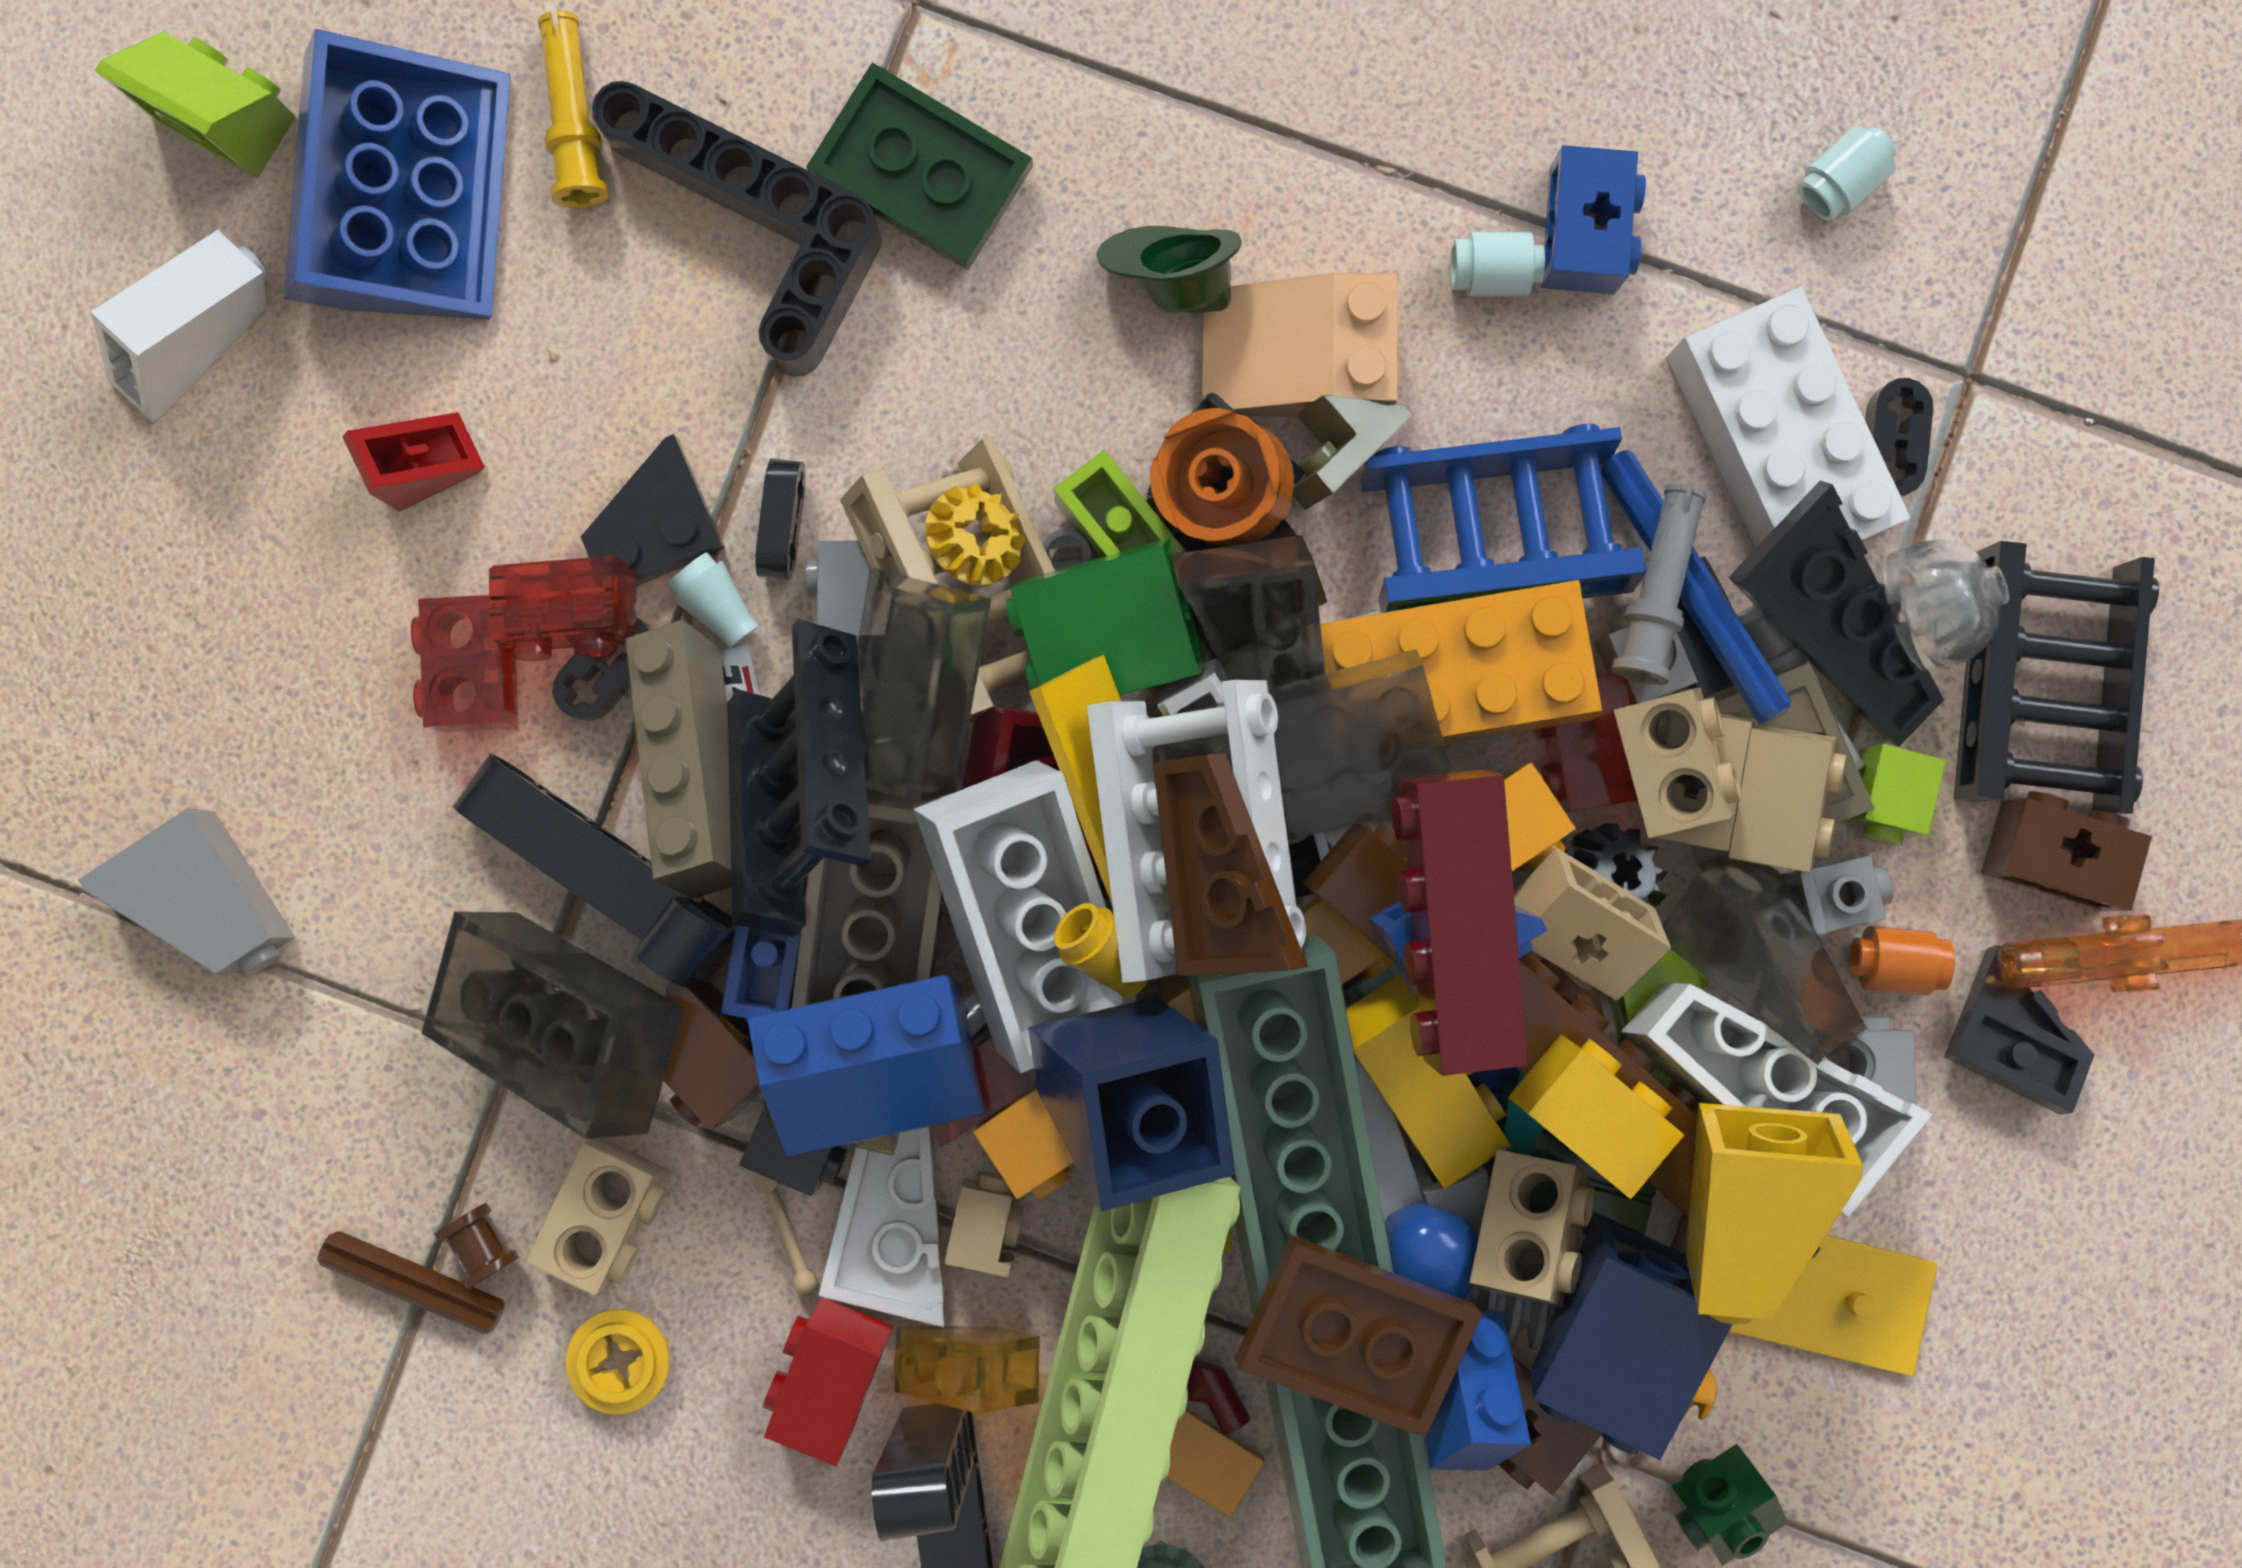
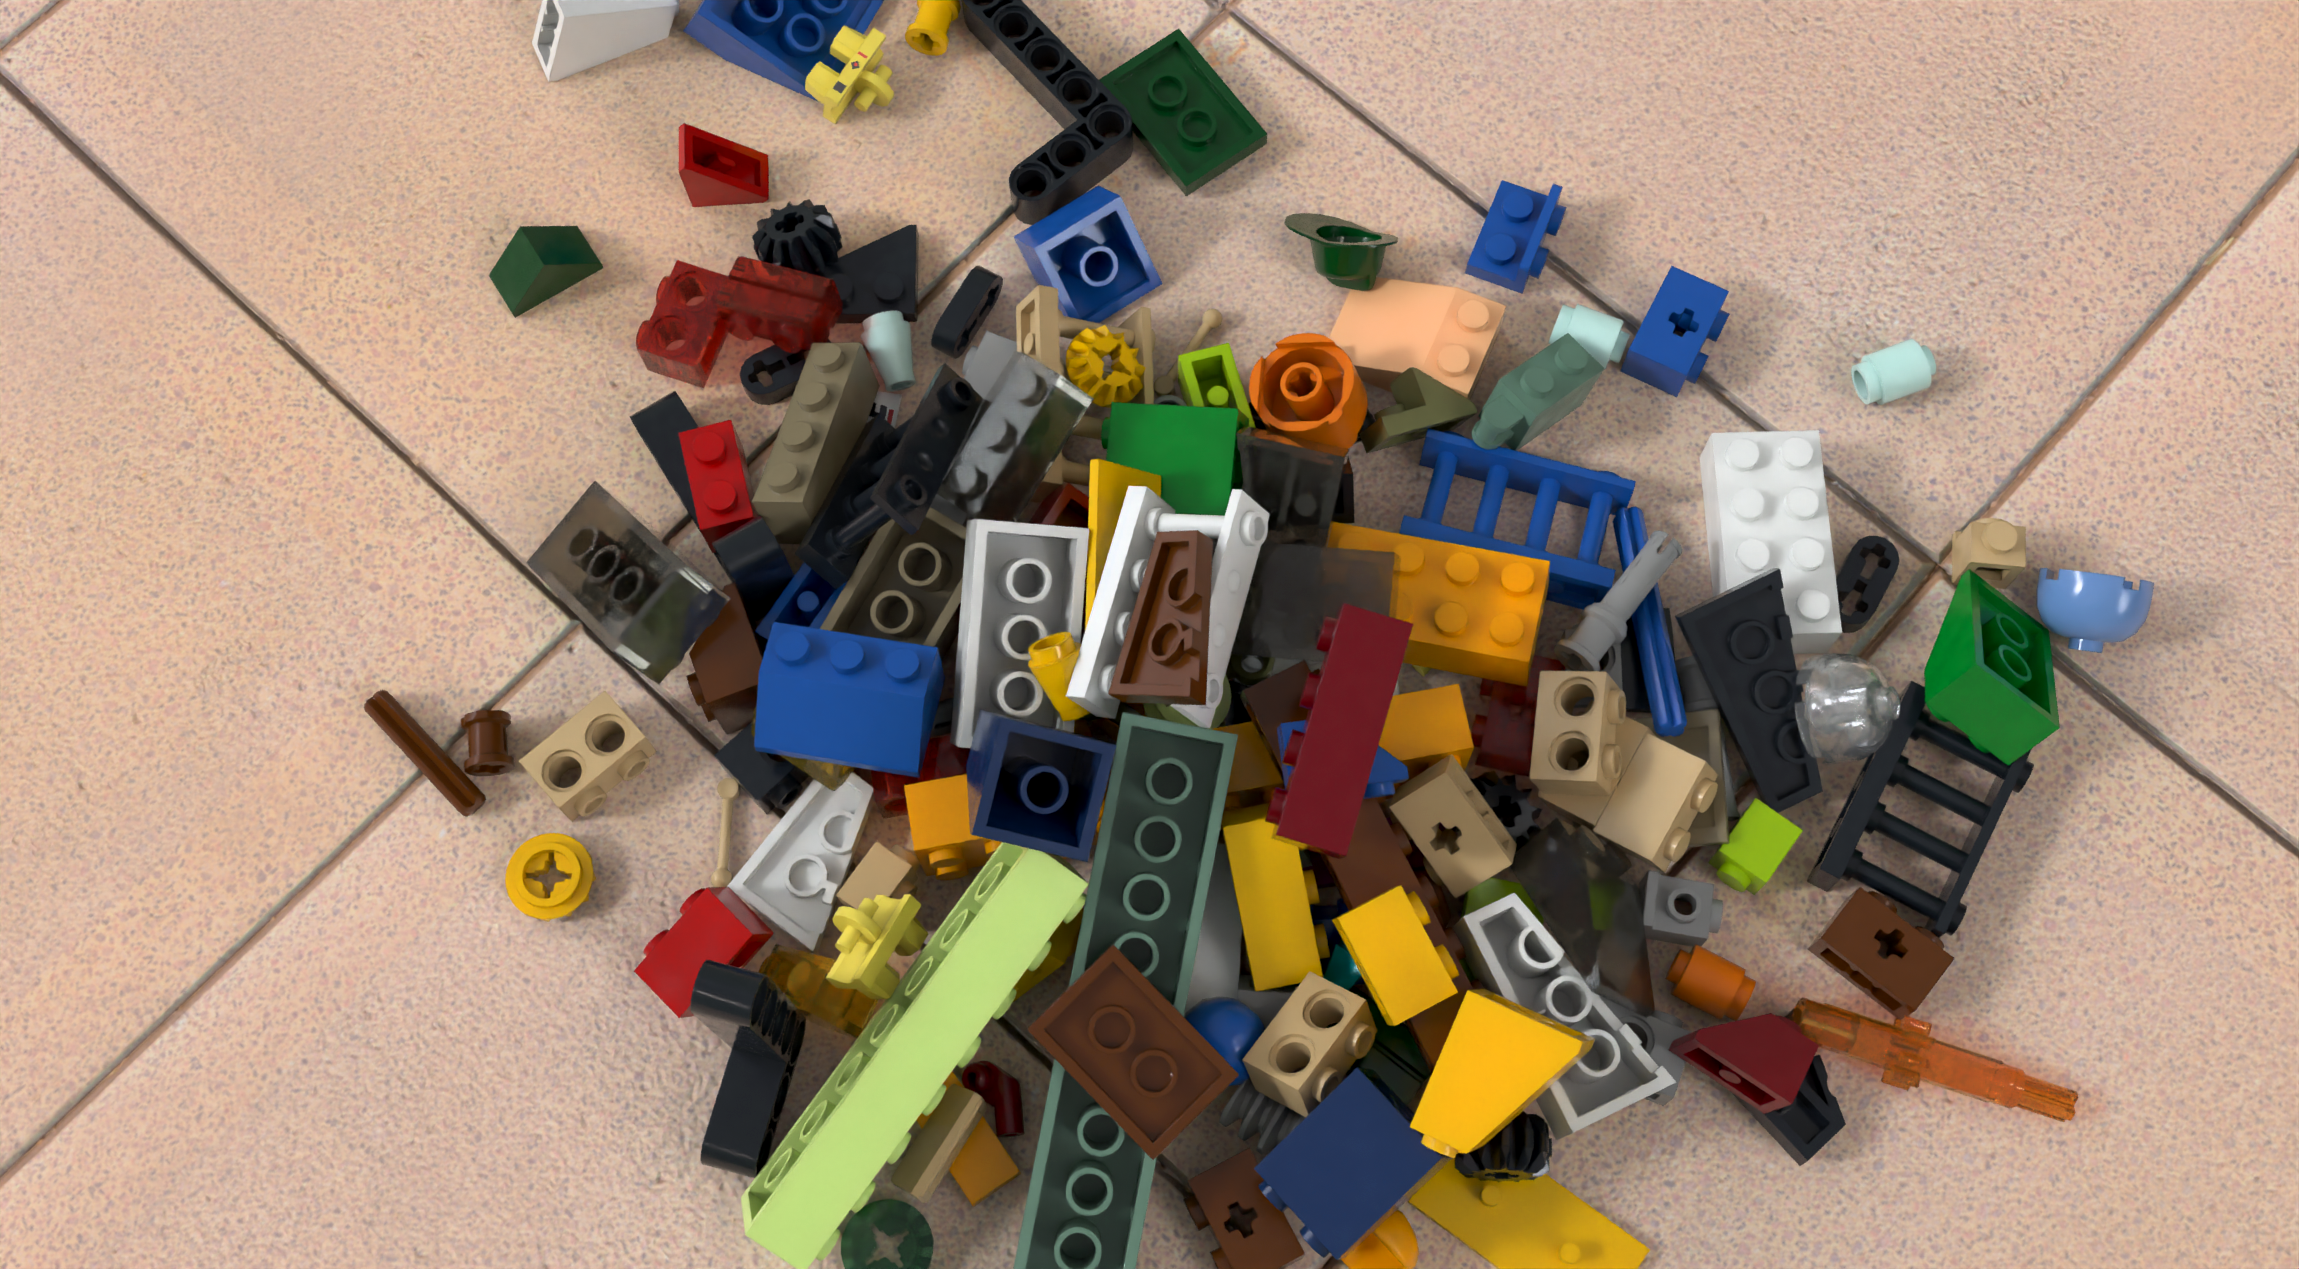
camera: 25 degrees right, 15 degrees down
(195, 894) = (414, 404): light grey slope -> none
(261, 658) = (541, 265): none -> dark green slope
(504, 302) = (838, 90): none -> light yellow hips
(546, 513) = (799, 238): none -> black gear
(601, 860) = (718, 479): none -> red brick
(891, 396) = (1090, 256): none -> blue slope
(1015, 1311) = (870, 939): none -> light yellow hips
(1041, 512) = (1165, 384): none -> tan hinge
(1176, 1493) = (939, 1142): none -> tan slope
(1364, 169) = (1513, 236): none -> blue bracket
(1470, 367) = (1537, 395): none -> sand green brick
(1483, 1408) = (1207, 1160): blue brick -> none
(1987, 1035) = (1752, 1057): none -> dark red slope
(2025, 350) = (1989, 545): none -> tan brick
(2085, 495) = (1992, 672): none -> green slope
(2159, 369) = (2092, 607): none -> medium blue cylinder

